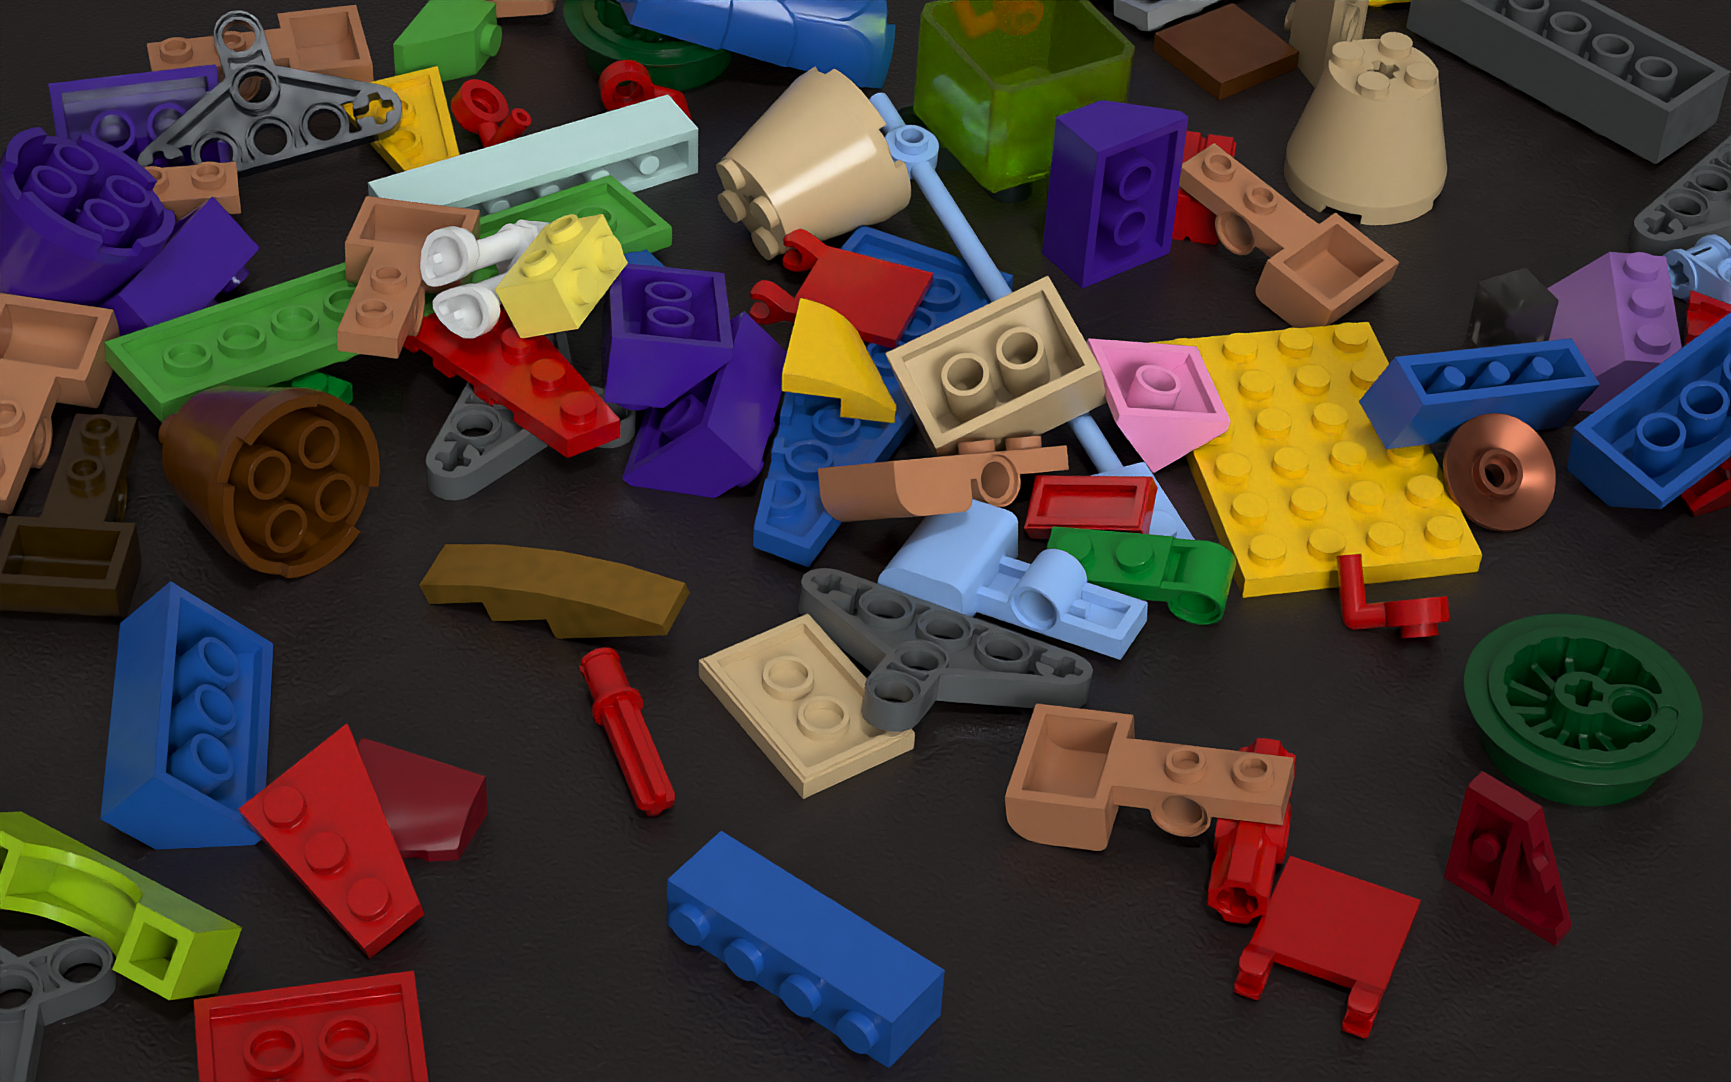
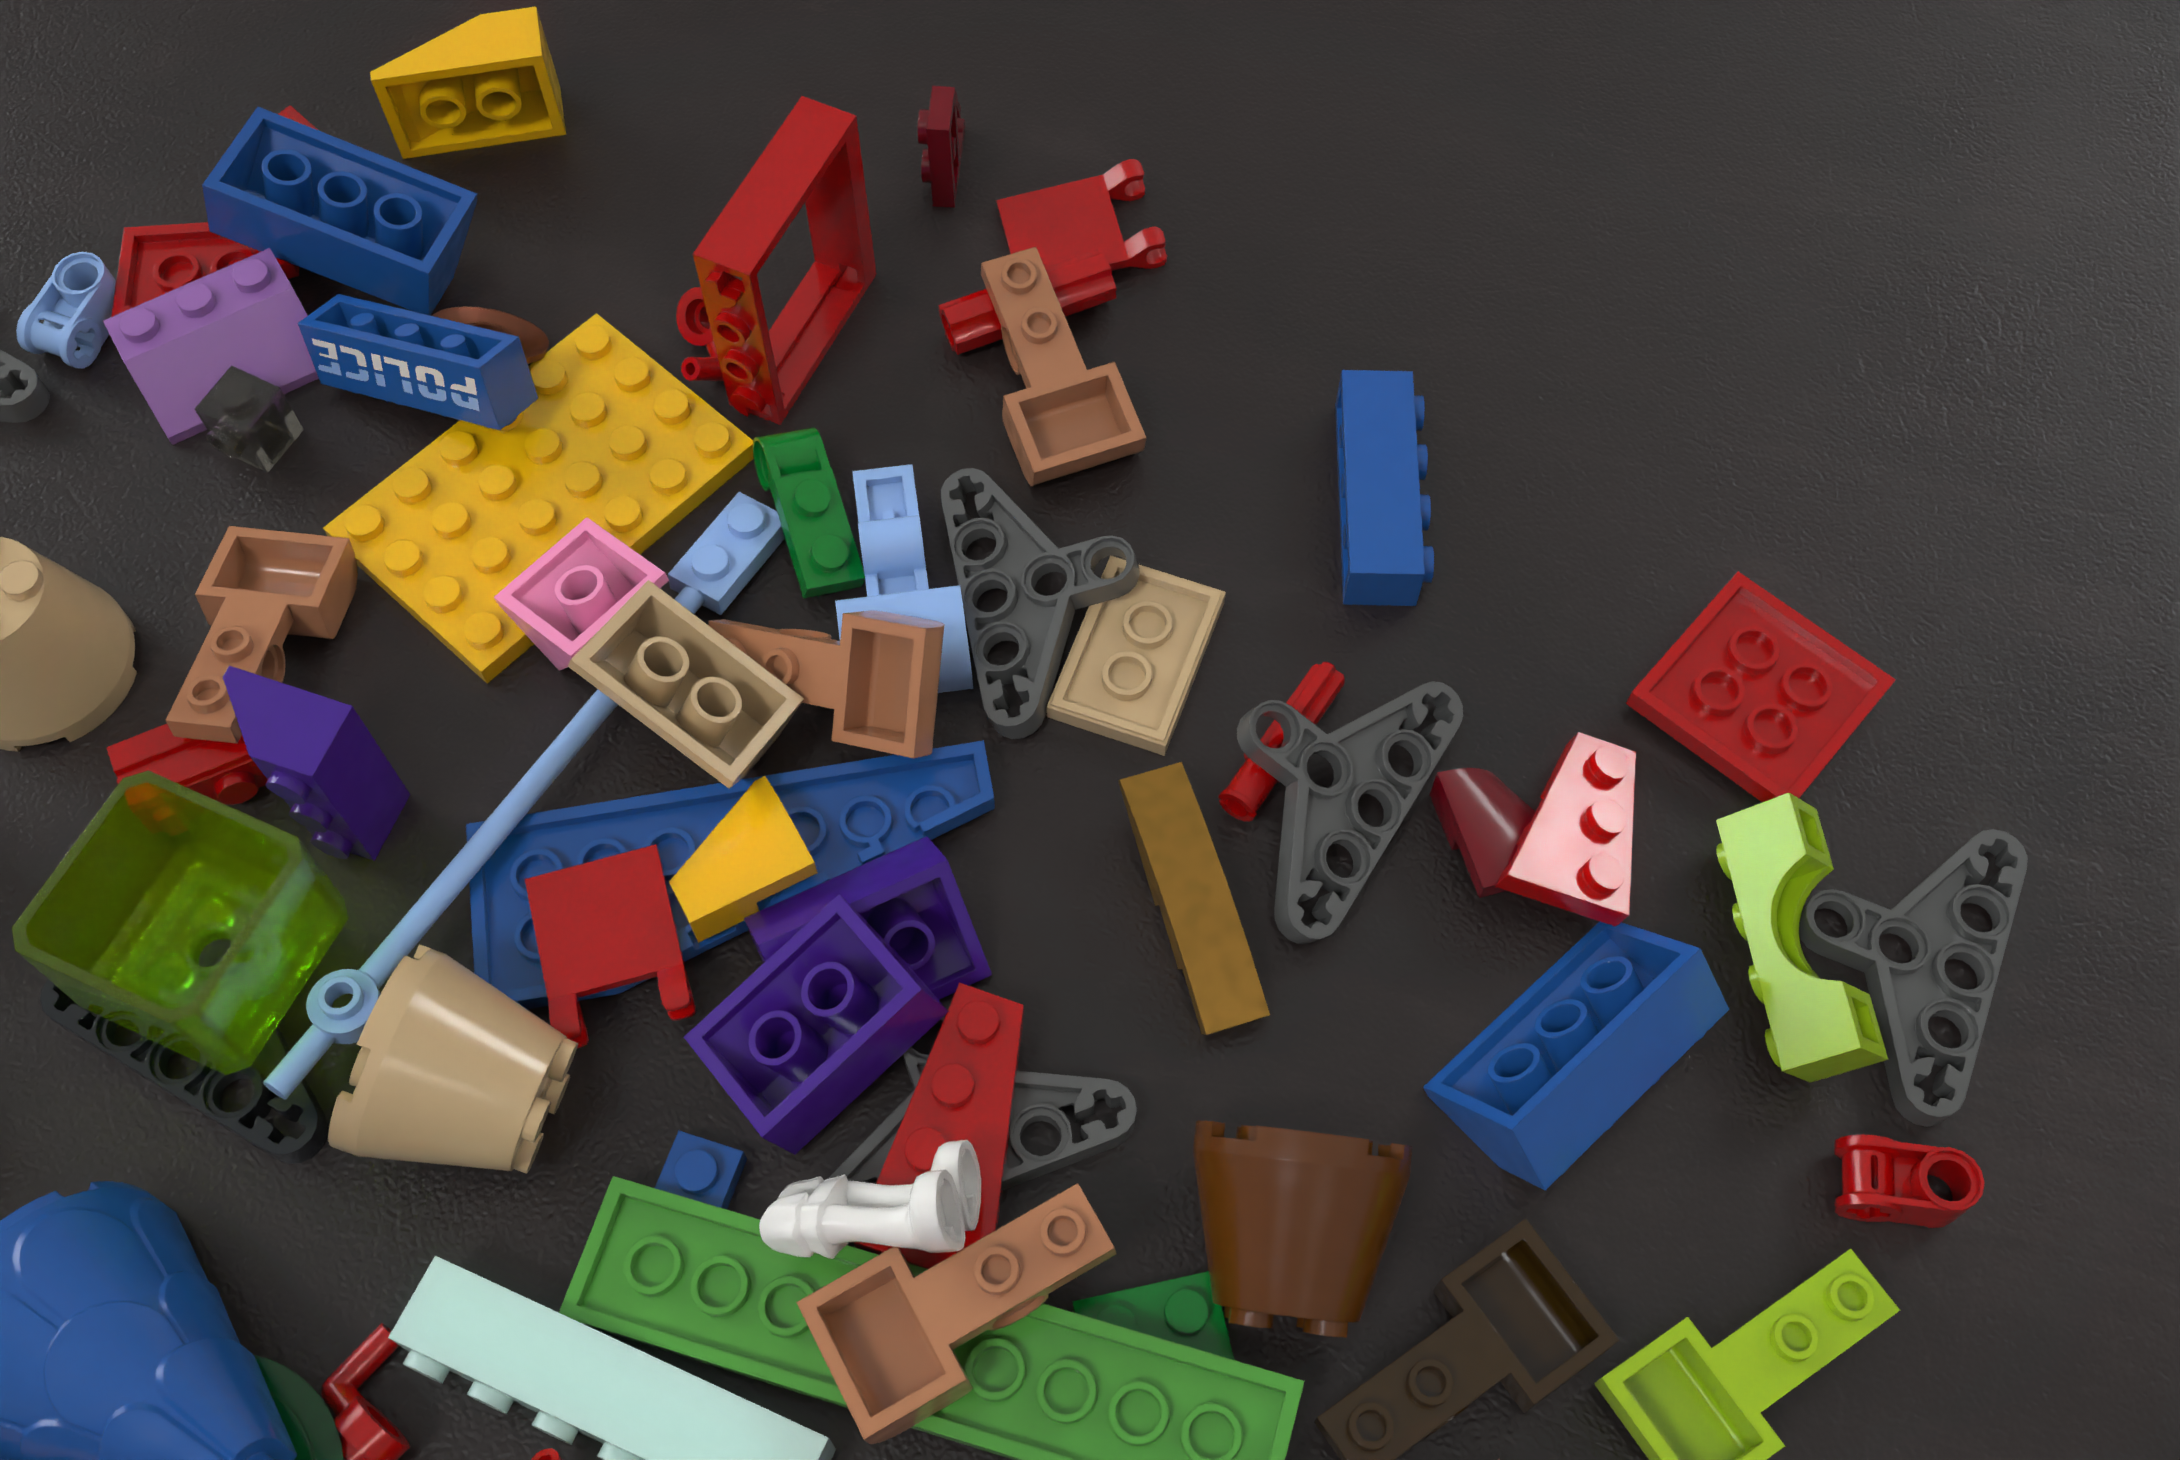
camera: 125 degrees left, 20 degrees up
(549, 749) = (1327, 816): none -> dark grey beam
(561, 275) = (845, 1125): light yellow brick -> none
(1091, 503) = (762, 571): red tile -> none
(1402, 720) = (810, 162): none -> red window
(1599, 731) = (710, 130): dark green piece -> none

